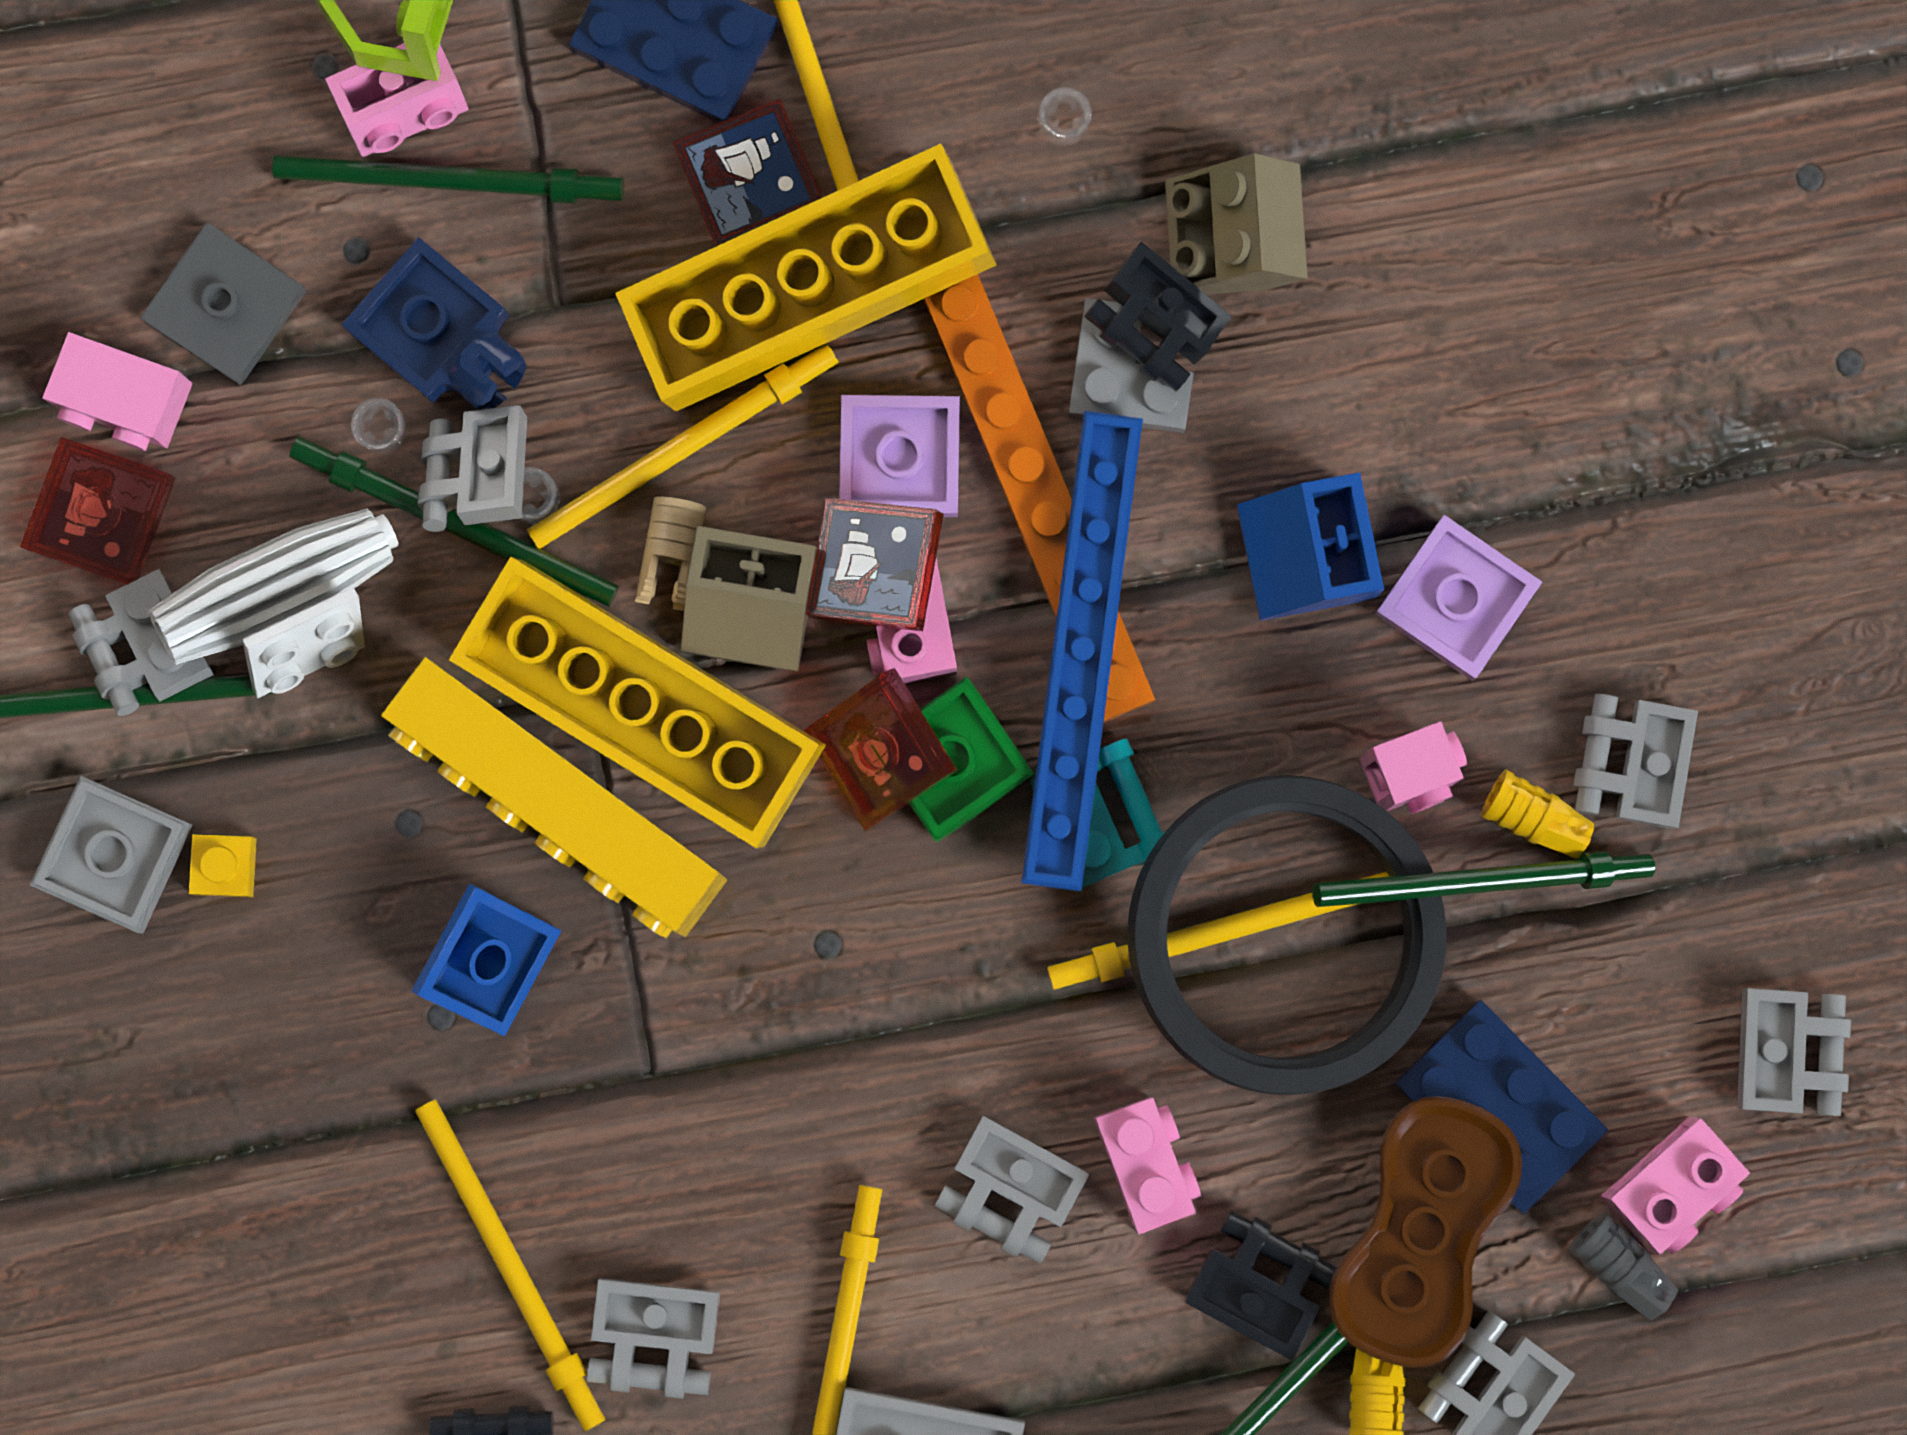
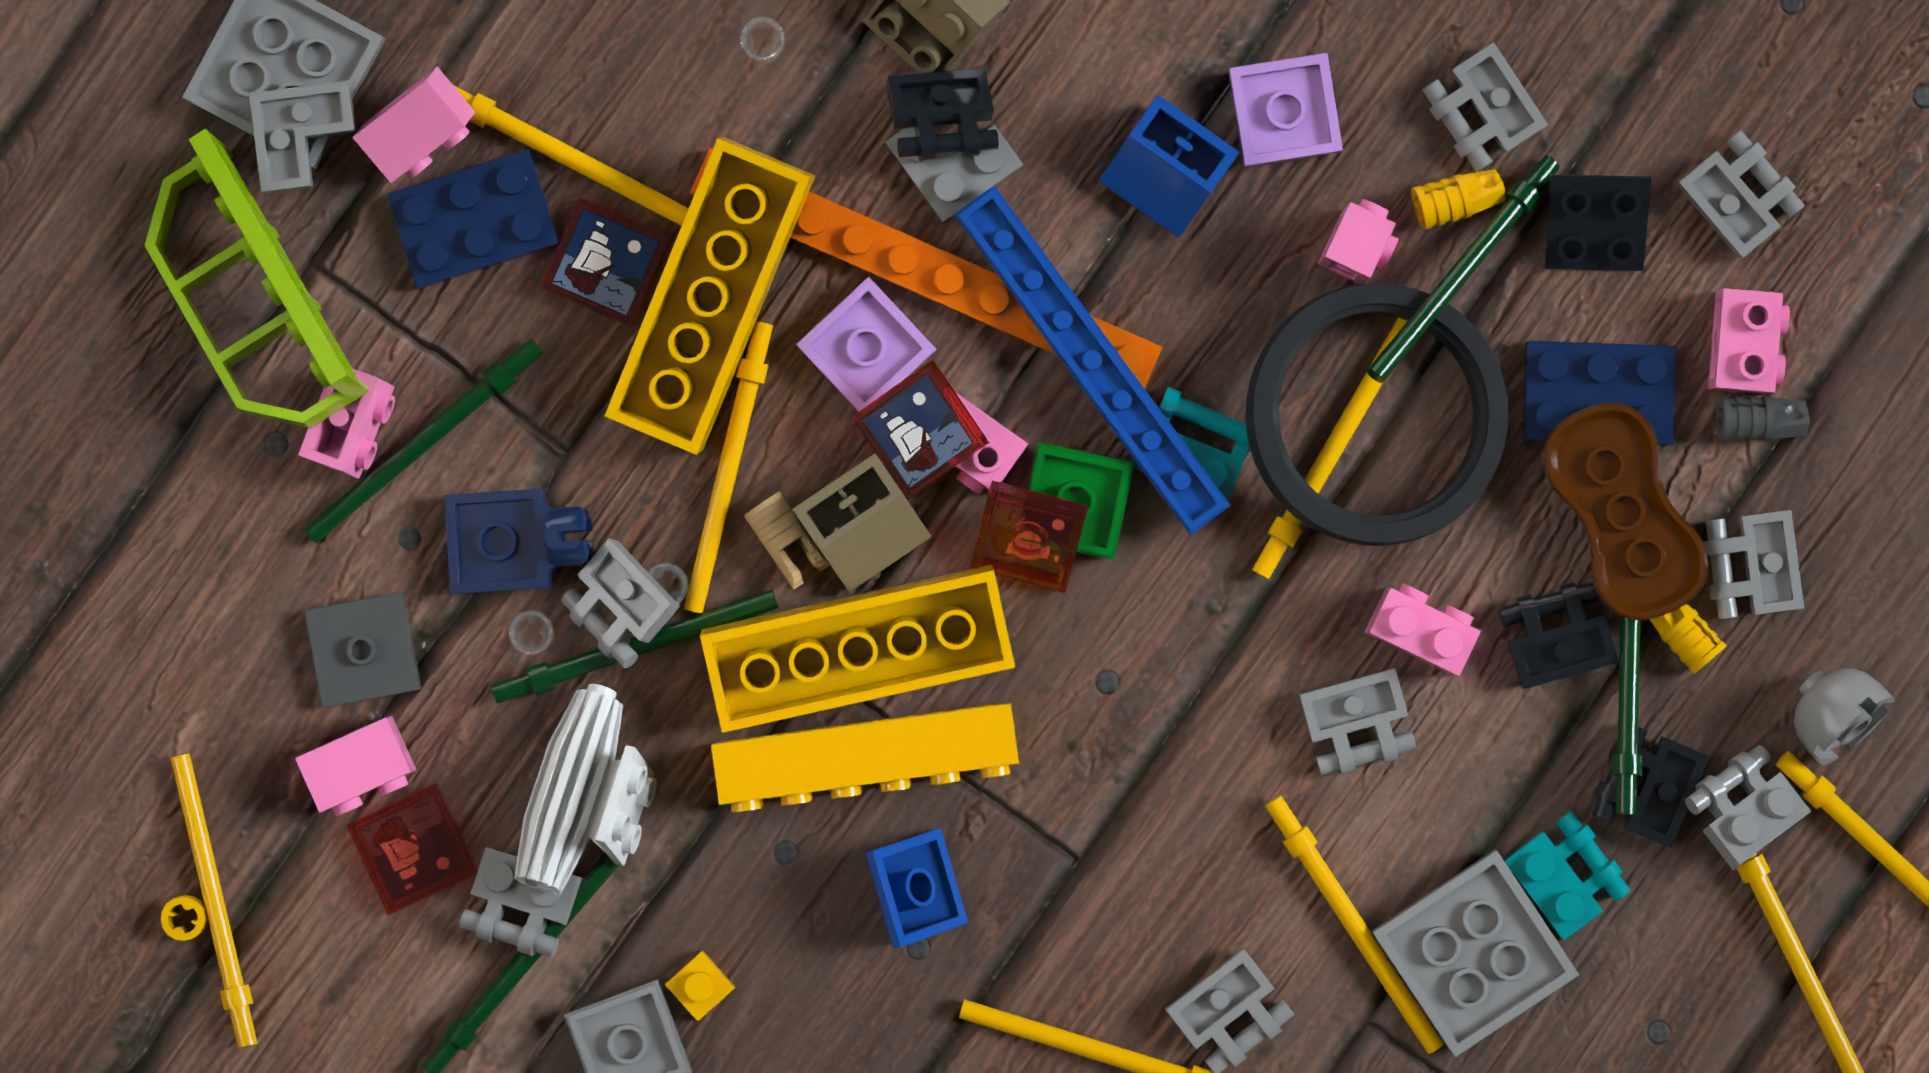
camera: 50 degrees left, 5 degrees up
(1641, 954) = (1597, 222): none -> black hinge

